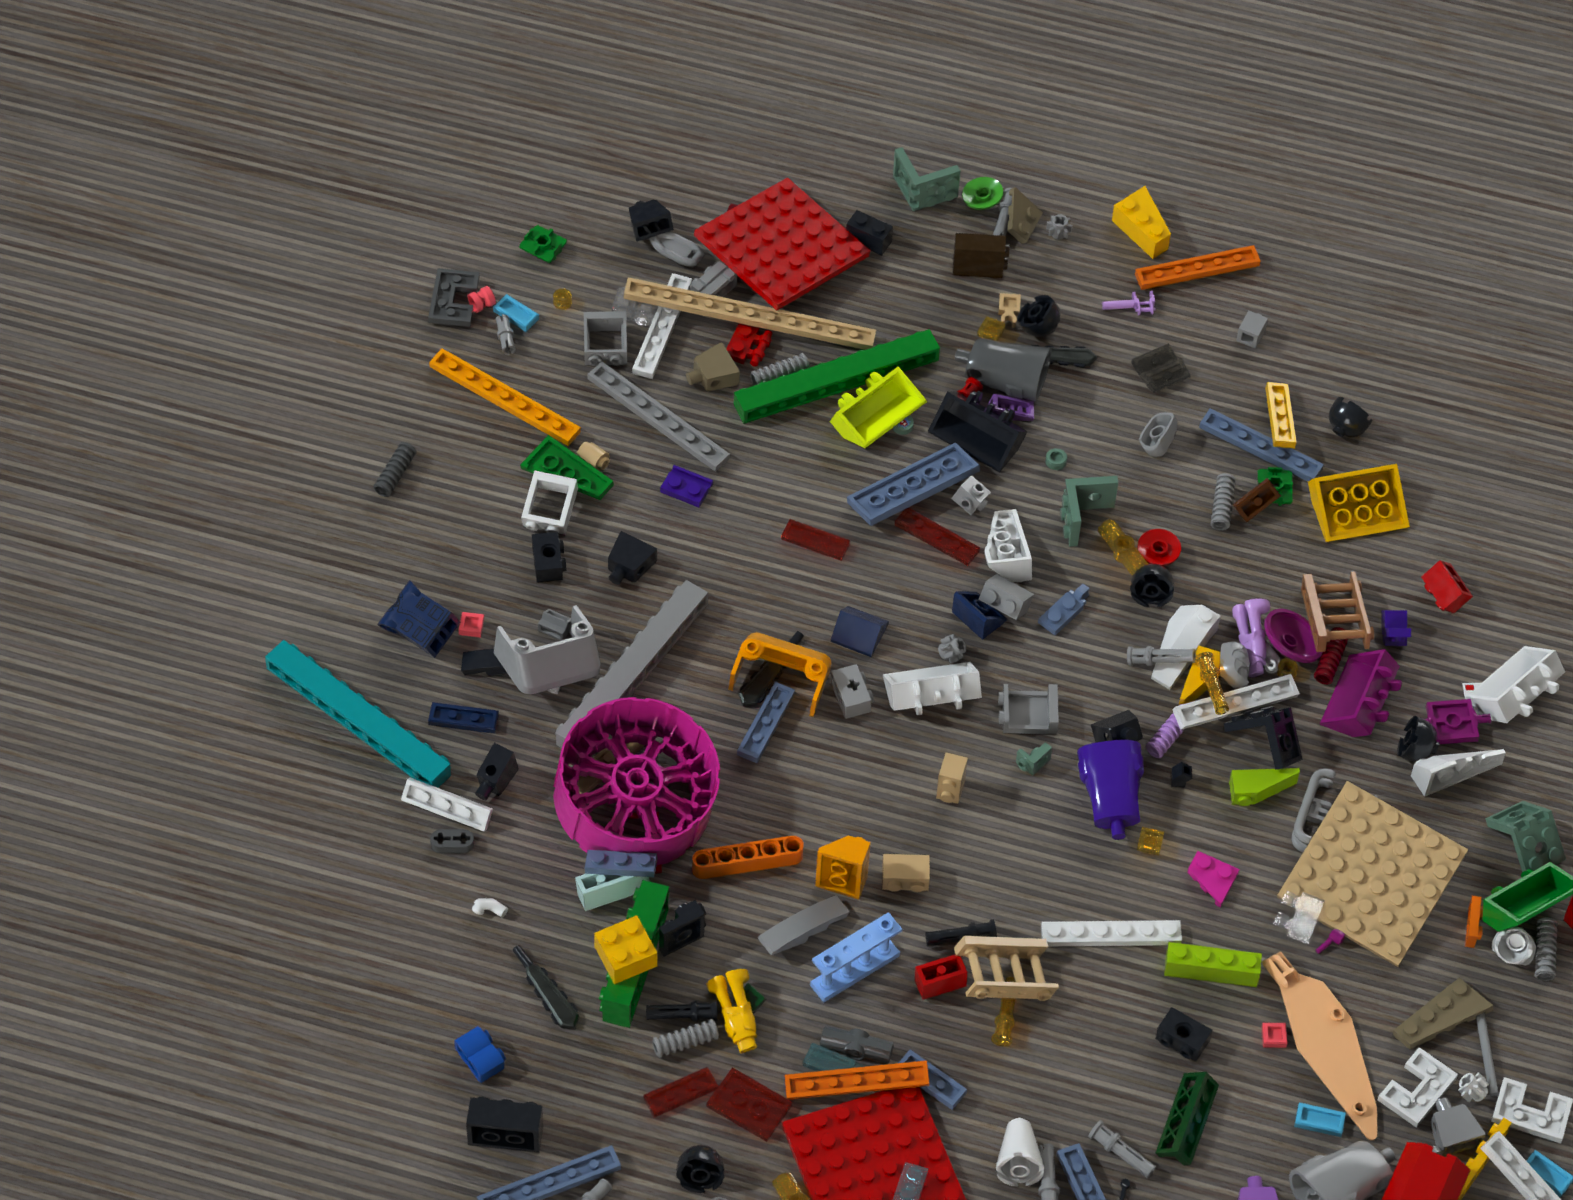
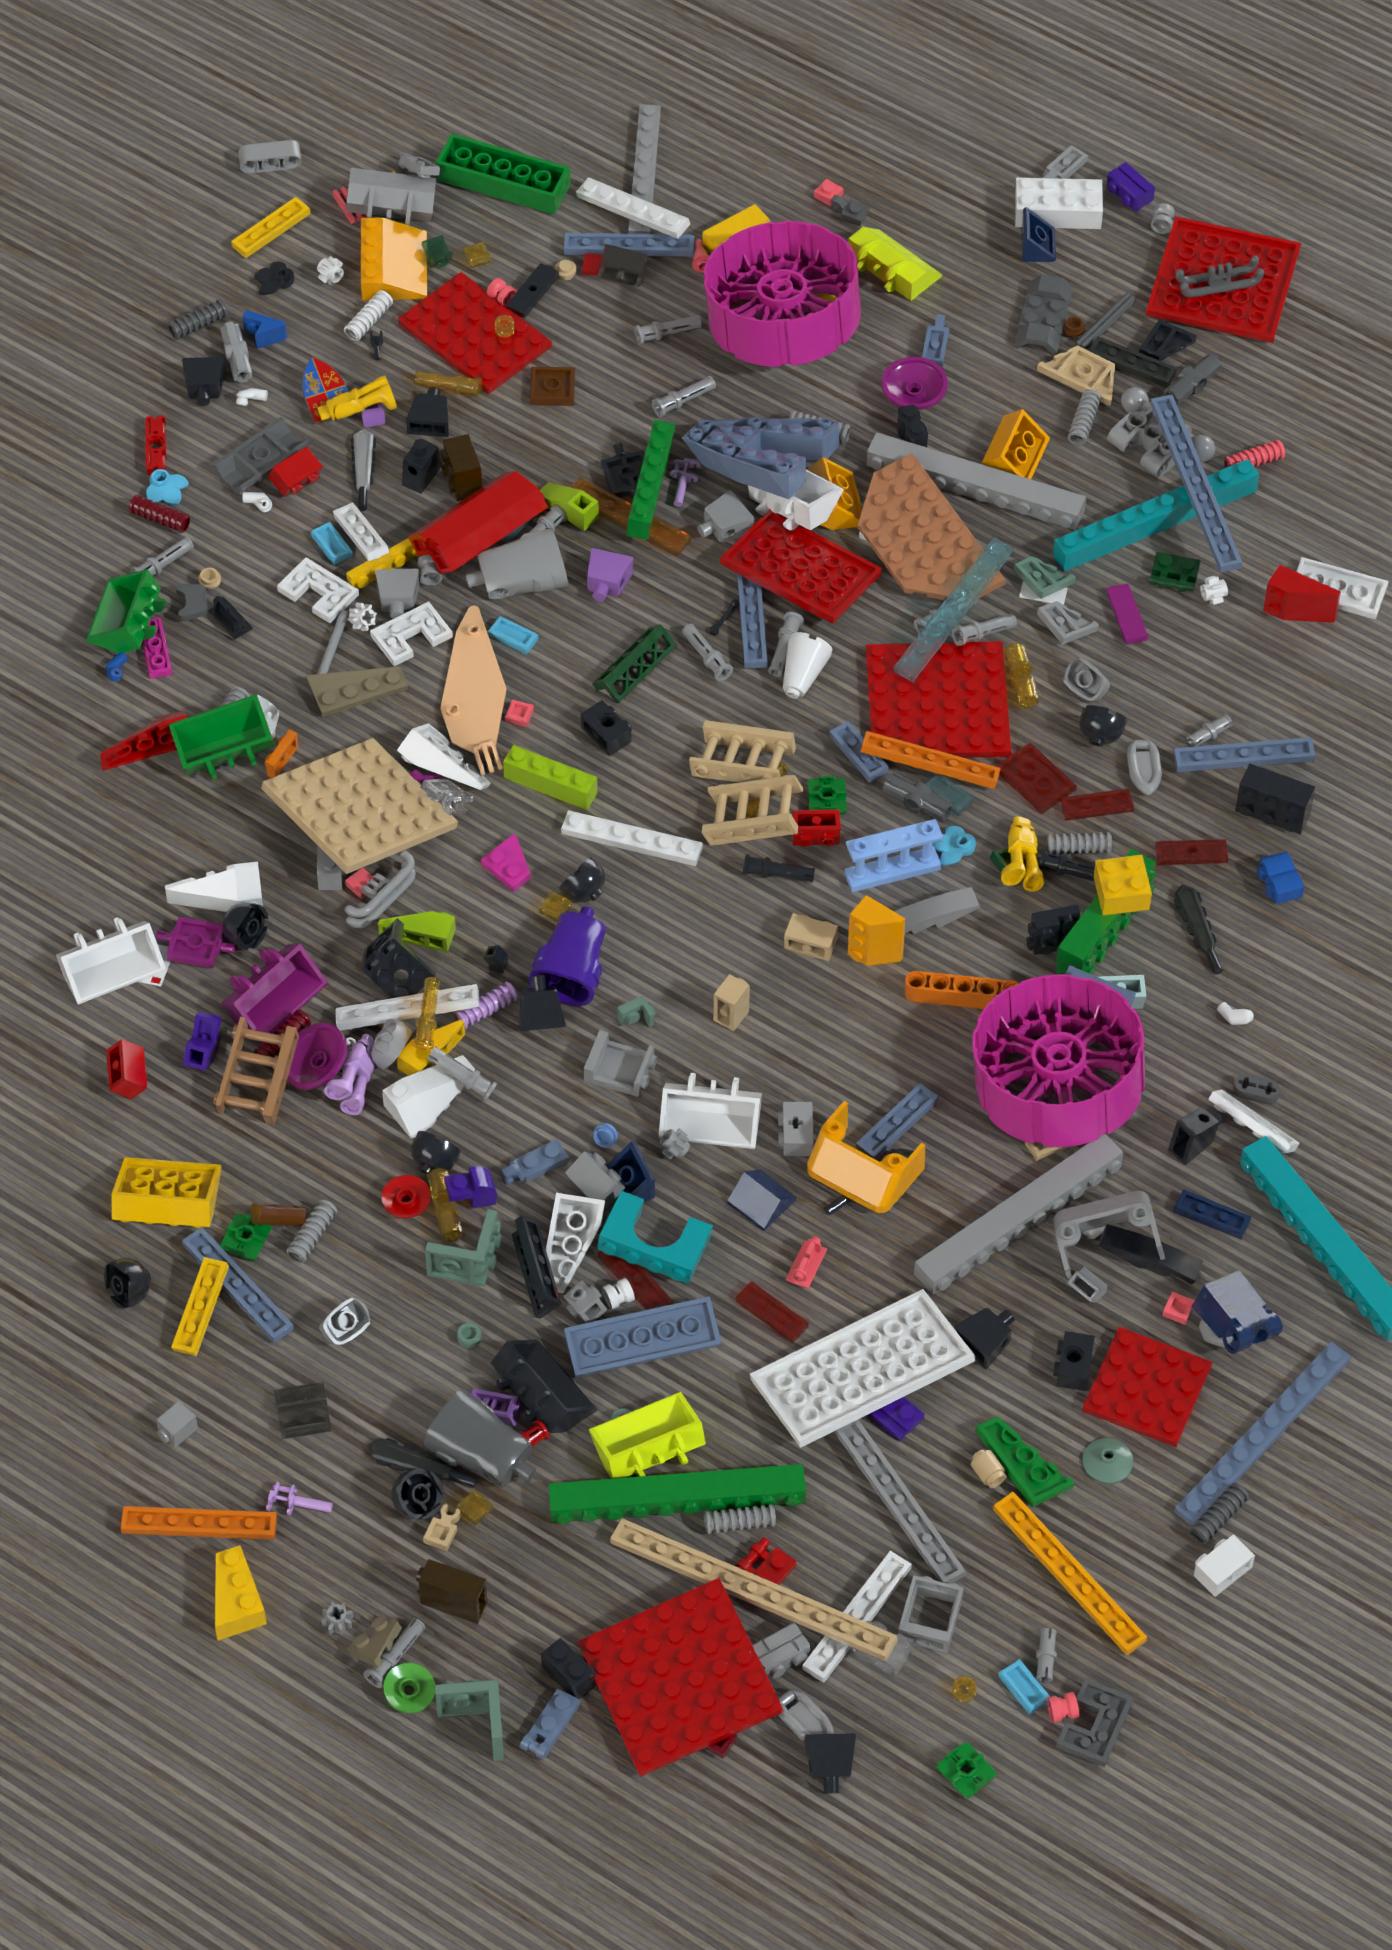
camera: 160 degrees left, 0 degrees up
(373, 546) = (1263, 1433): none -> sand blue plate
(381, 430) = (1223, 1565): none -> white brick
(481, 558) = (1147, 1386): none -> red plate
(498, 502) = (1107, 1470): none -> sand green dish
(554, 483) = (1056, 1439): white window -> none
(585, 1054) = (1191, 852): none -> clear red tile
(645, 1144) = (1144, 765): none -> light grey piece
(714, 369) = (816, 1540): dark tan torso -> none
(722, 503) = (862, 1368): none -> white plate
(801, 582) = (807, 1263): none -> coral hinge
(808, 1007) = (952, 845): none -> medium azure plate
(869, 199) = (550, 1723): none -> sand blue plate
(909, 548) = (675, 1261): none -> teal arch
(945, 1035) = (827, 785): none -> green piece
(950, 513) = (618, 1293): none -> white wheel
(1015, 645) = (605, 1135): none -> medium blue plate
(1024, 513) = (535, 1266): none -> black fence
(1029, 1051) = (741, 737): none -> tan fence
(1102, 559) = (475, 1185): none -> dark purple brick
(1135, 864) = (585, 882): none -> black cylinder
(1328, 960) = (431, 751): none -> white wedge
(1528, 826) = (184, 805): sand green bracket -> none

